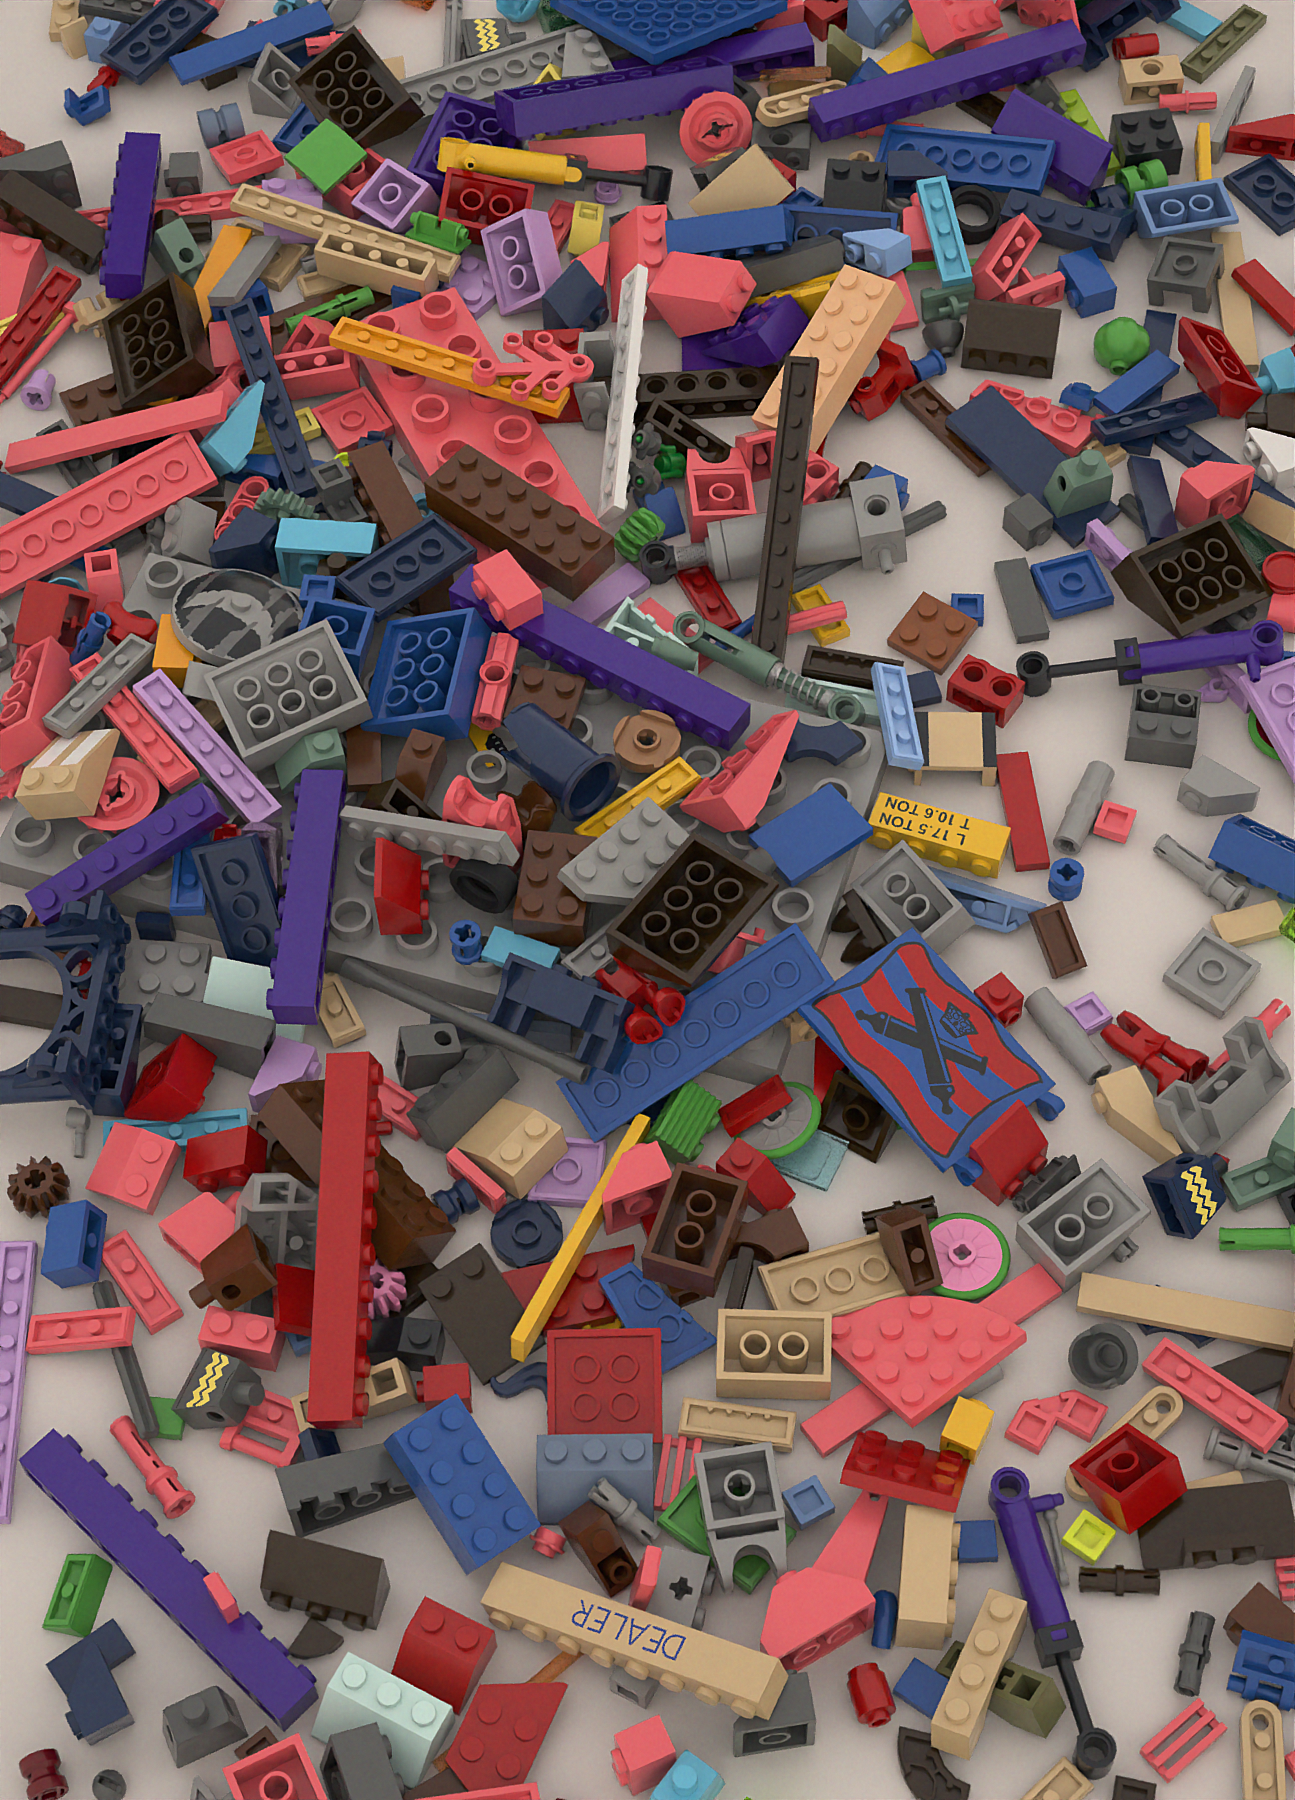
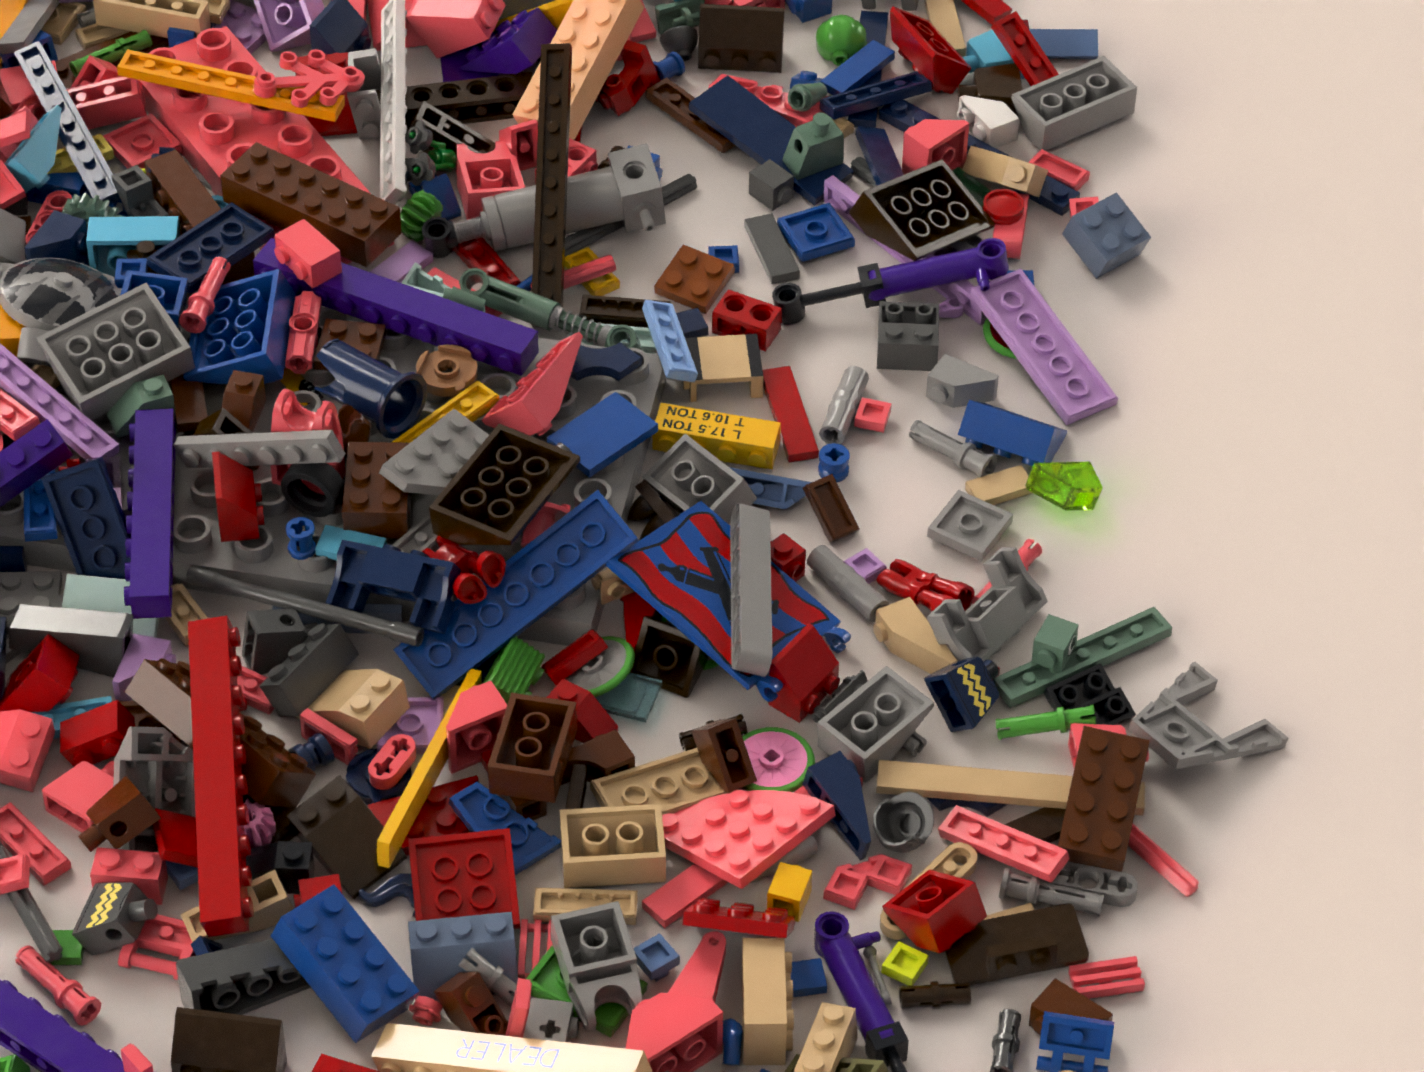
camera: 10 degrees left, 10 degrees down
(388, 640) = (202, 302): none -> coral pin
(536, 1215) = (387, 759): none -> coral beam
(957, 1049) = (751, 590): none -> light grey beam
(1034, 1306) = (839, 784): none -> dark blue slope
(1076, 415) = (806, 95): none -> sand green cone

